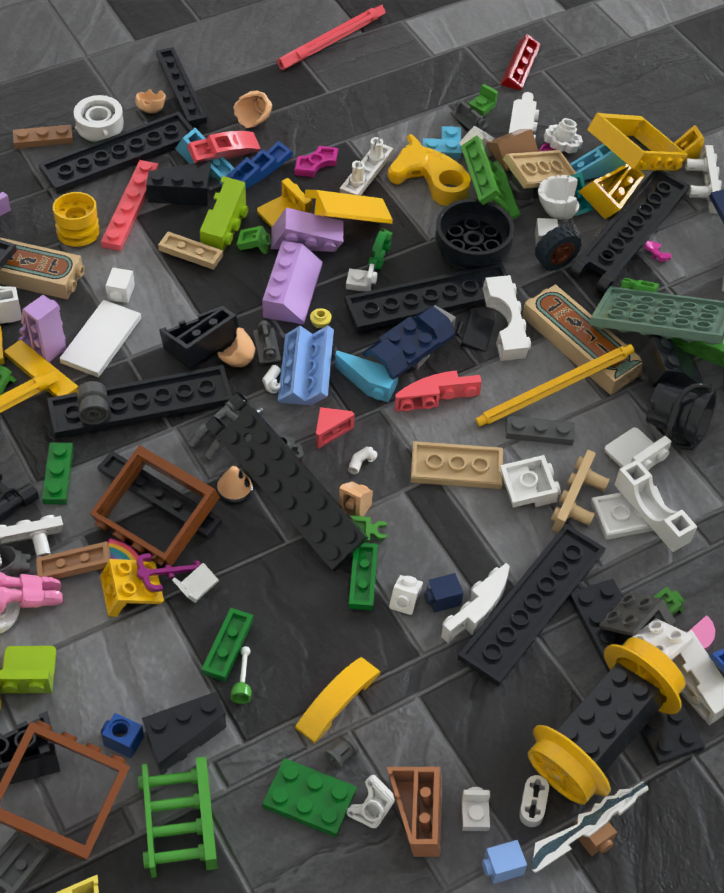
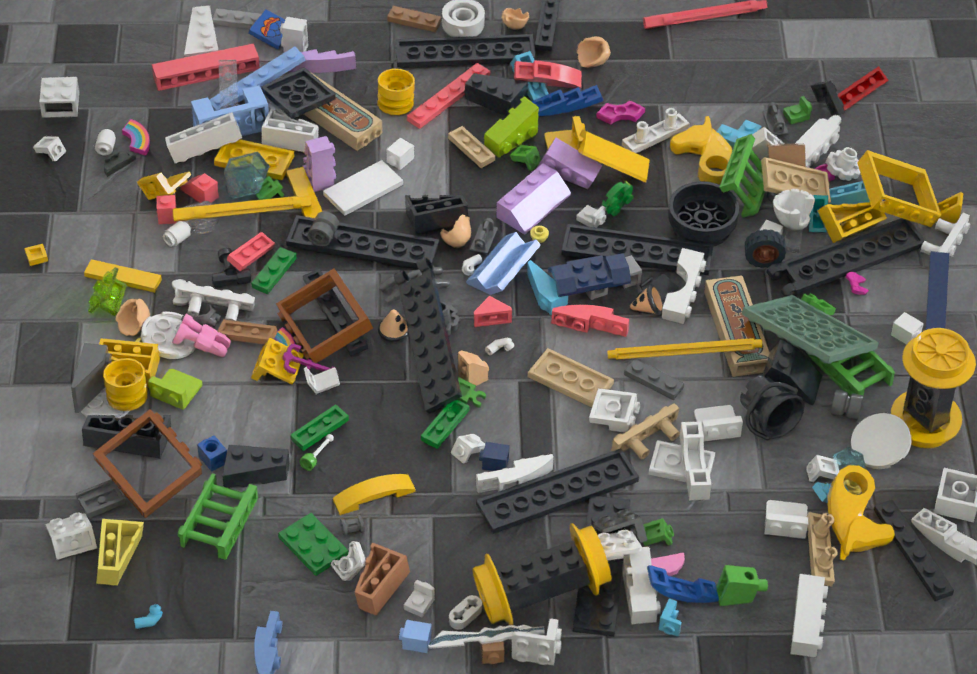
camera: 30 degrees right, 5 degrees down
(20, 462) = (250, 251): none -> coral plate
(479, 349) = (648, 301): none -> light nougat hat
(505, 72) = (826, 92): none -> black plate
(654, 810) = (537, 647): none -> white bracket

